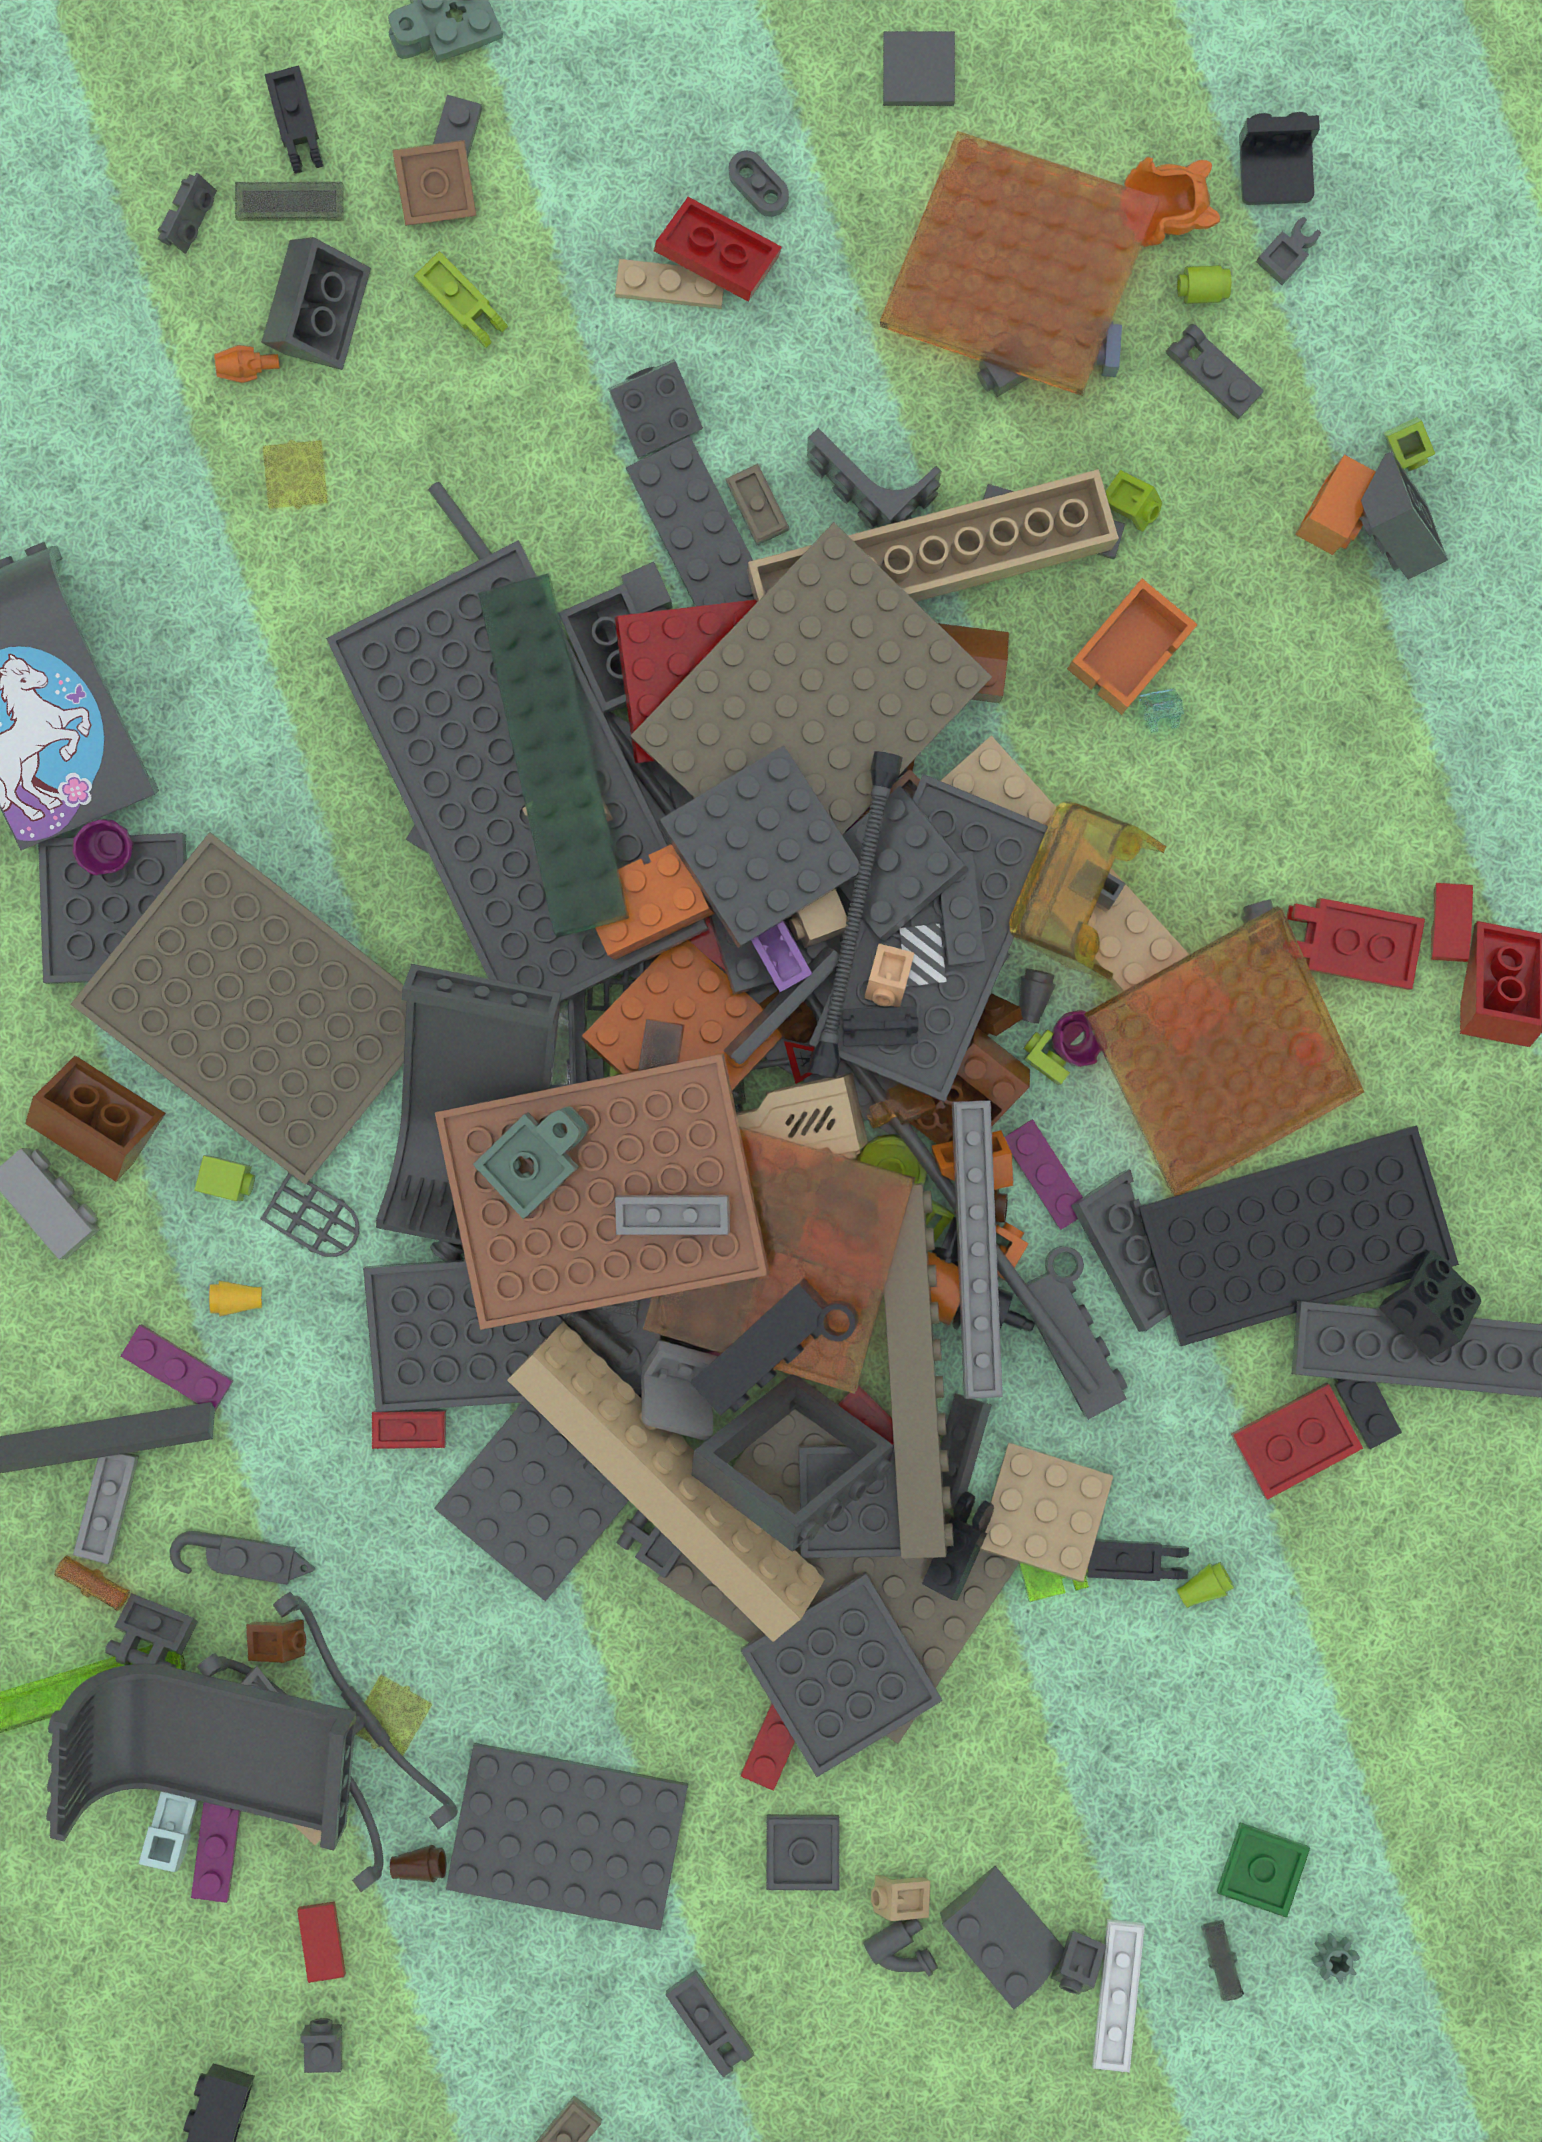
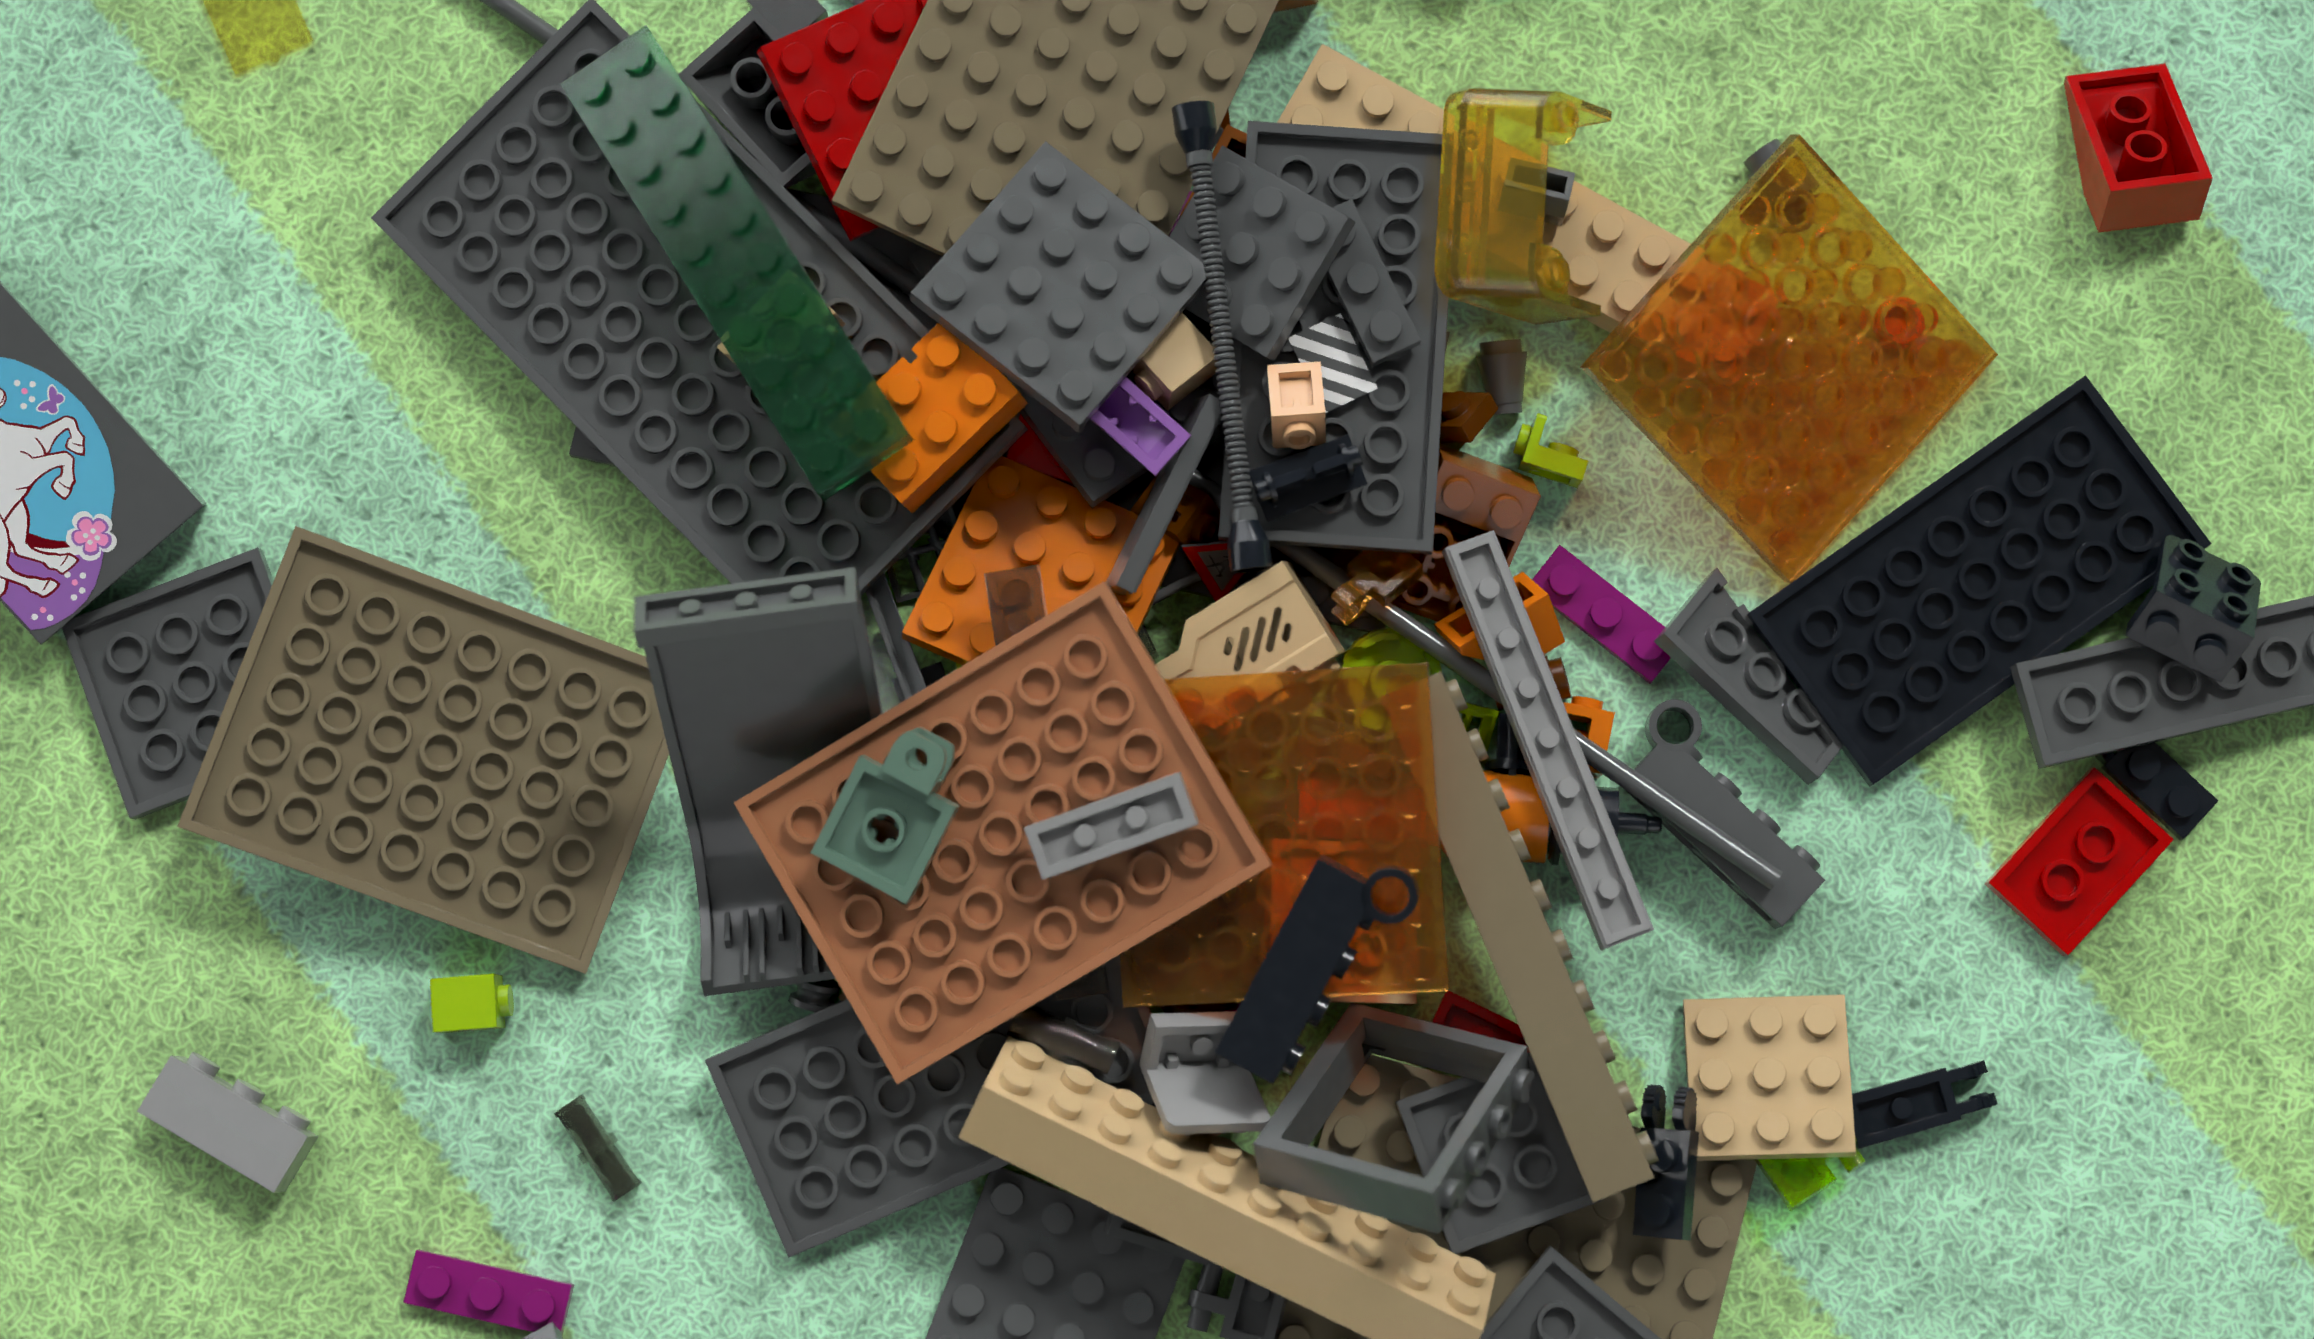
camera: 15 degrees left, 5 degrees down
(94, 1118) = (259, 981): dark orange slope -> none
(102, 847) = (153, 599): magenta hair -> none
(233, 1298) = (537, 1166): yellow cone -> none
(276, 1299) = (597, 1148): none -> clear smoke pin
(297, 1220) = (597, 1000): dark grey window -> none
(409, 1429) = (842, 1267): red plate -> none
(963, 1440) = (1619, 1004): dark grey plate -> none
(1066, 1031) = (1566, 405): magenta hair -> none
(1206, 1585) = (2026, 1105): lime cone -> none
(1360, 942) = (1920, 156): red tile -> none
(1452, 922) = (2032, 88): red slope -> none

